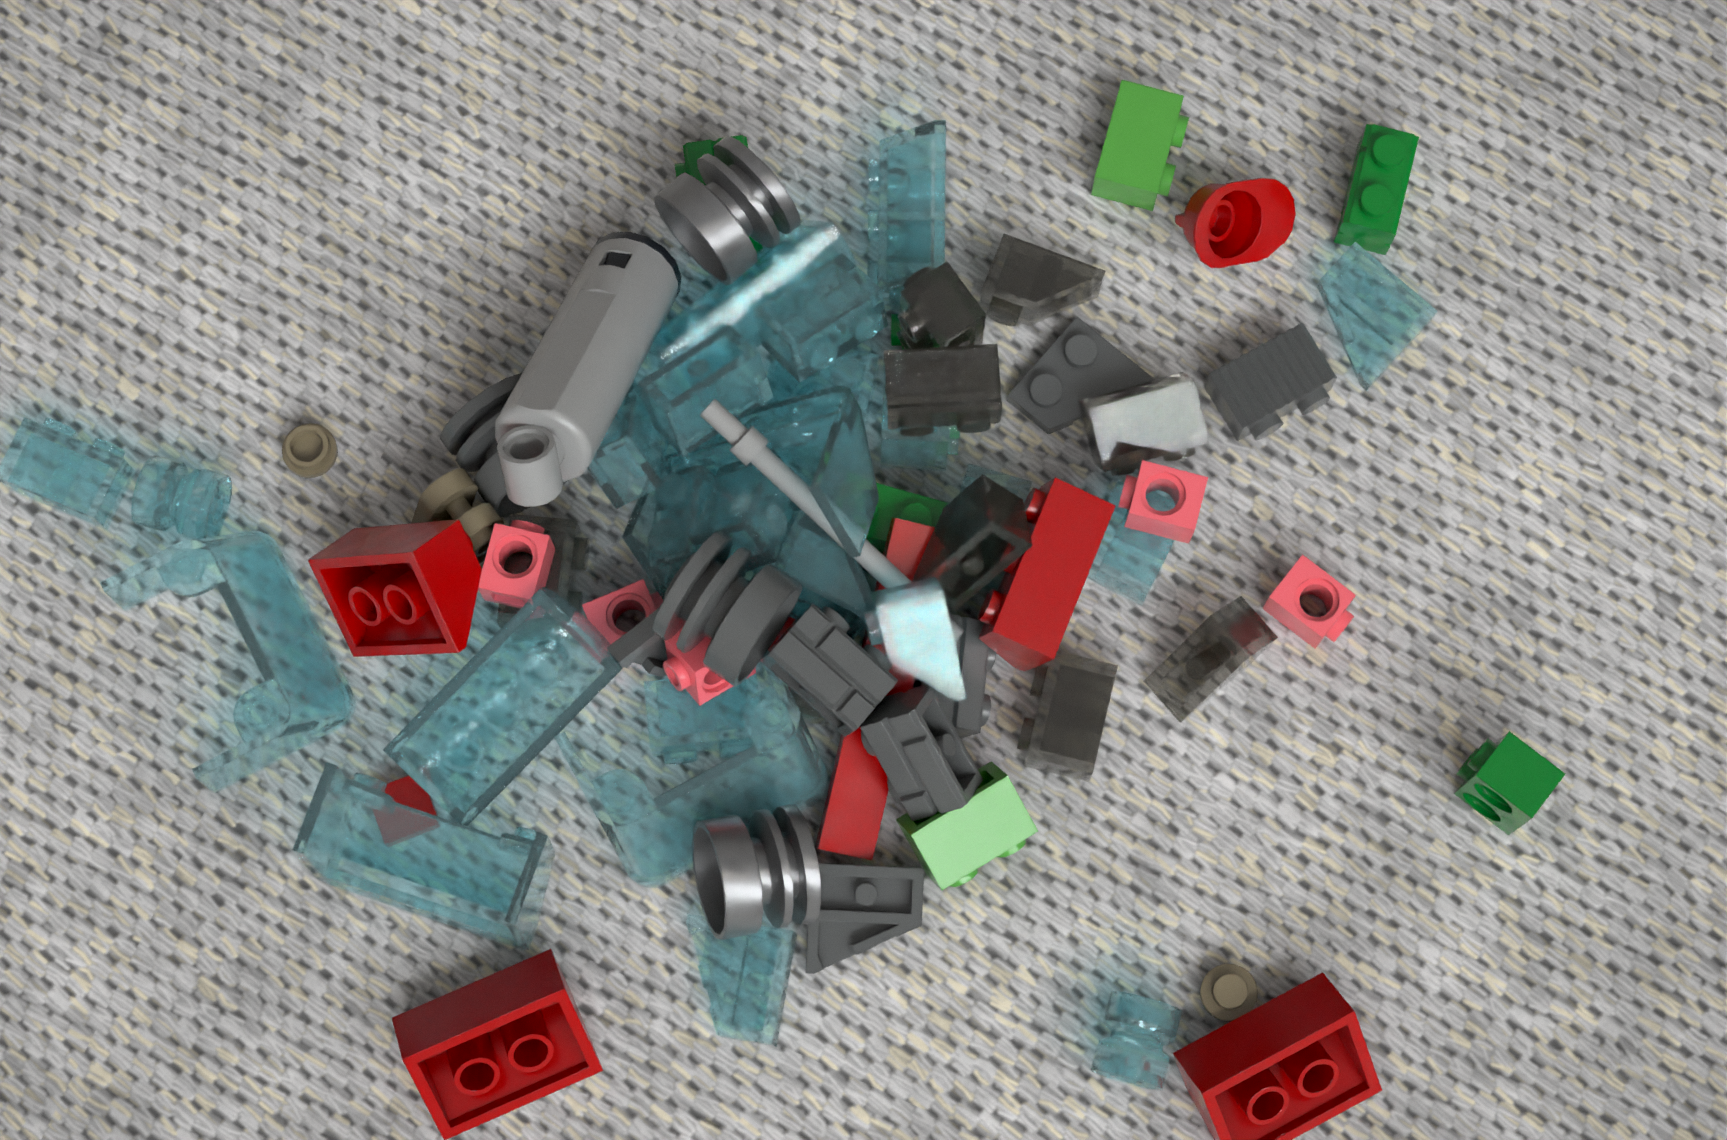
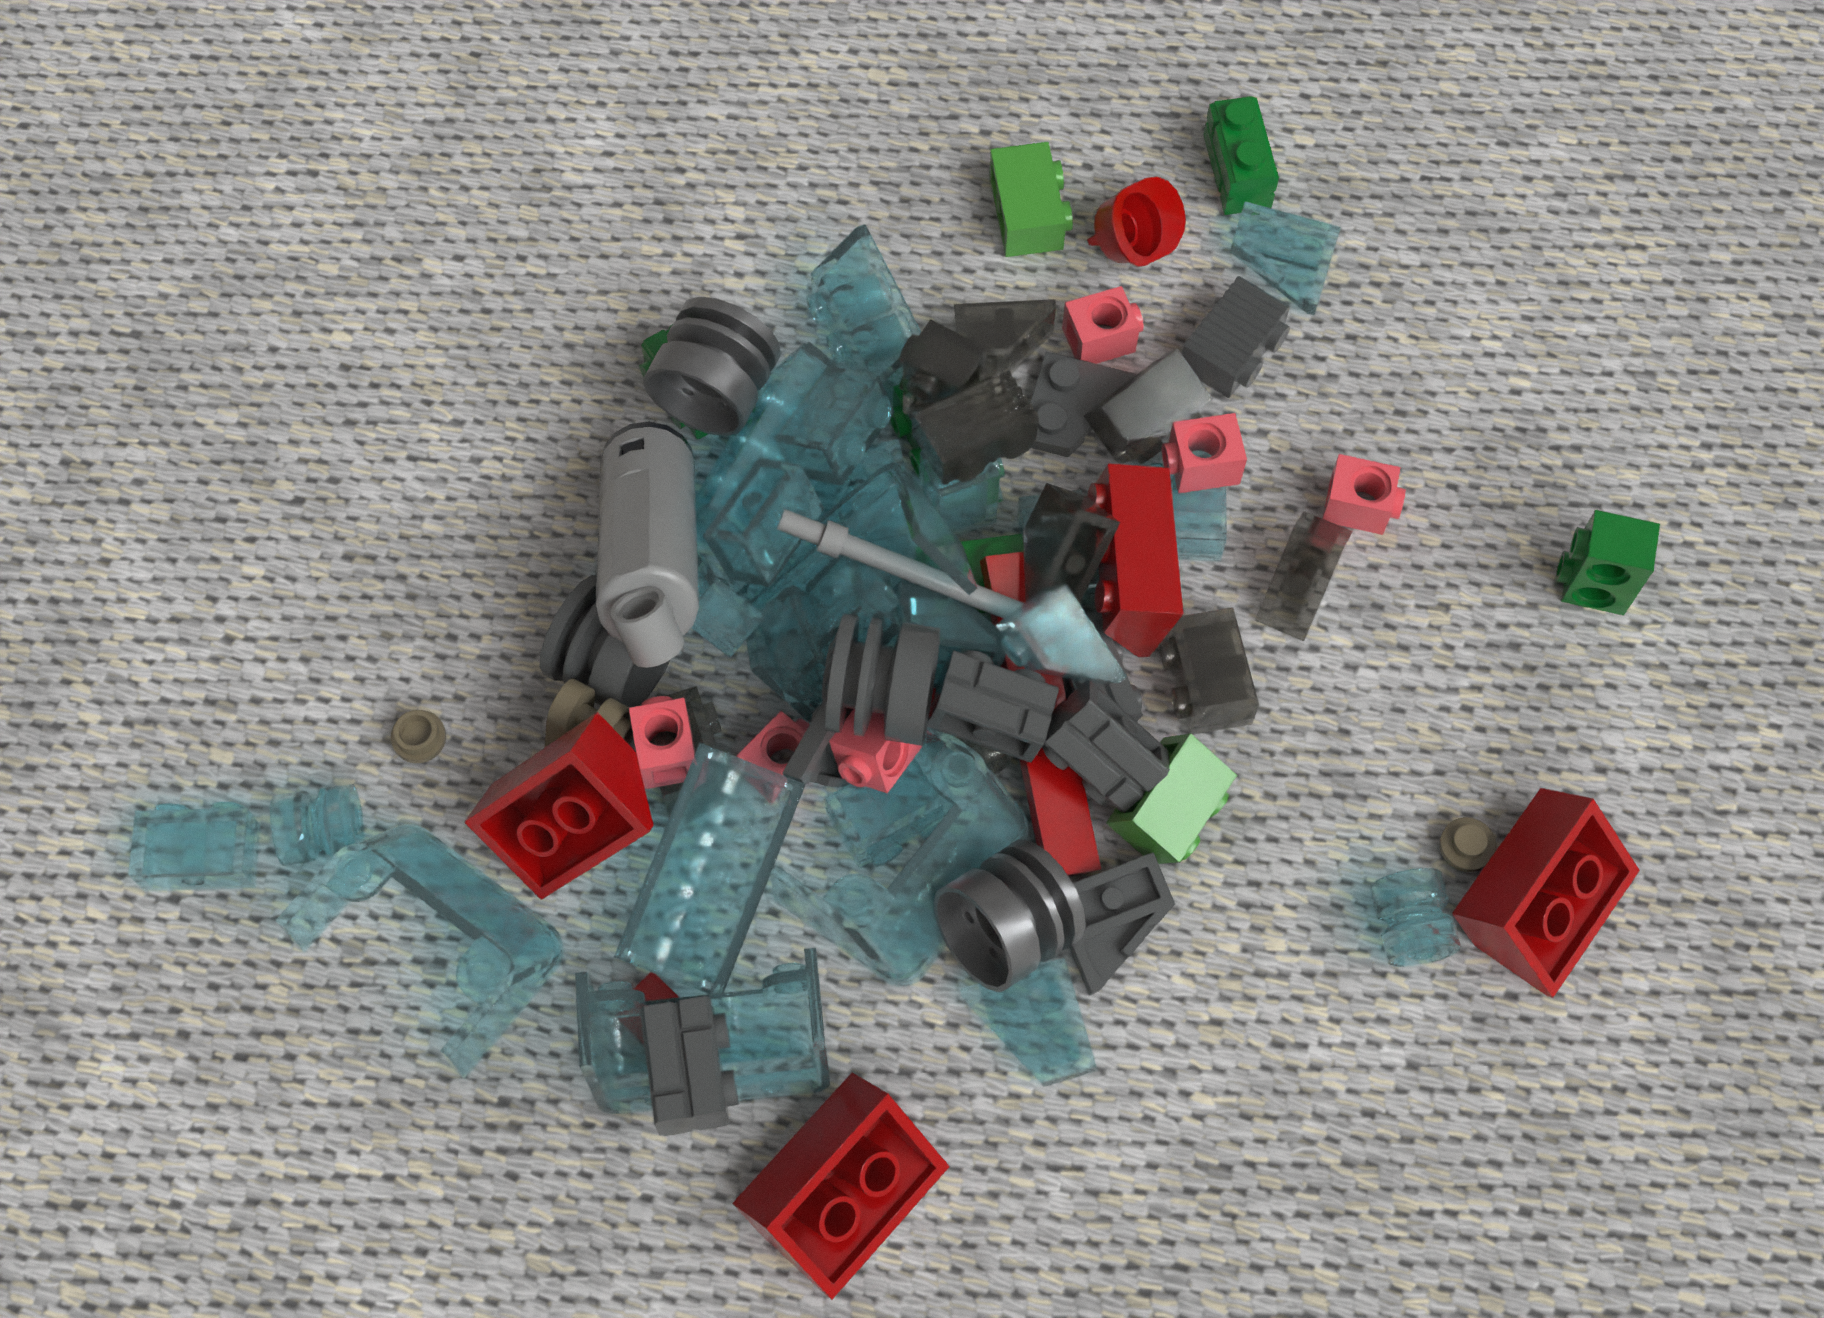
camera: 25 degrees left, 10 degrees down
(401, 881) = (686, 1065): none -> dark grey brick
(1130, 295) = (1102, 308): none -> coral brick

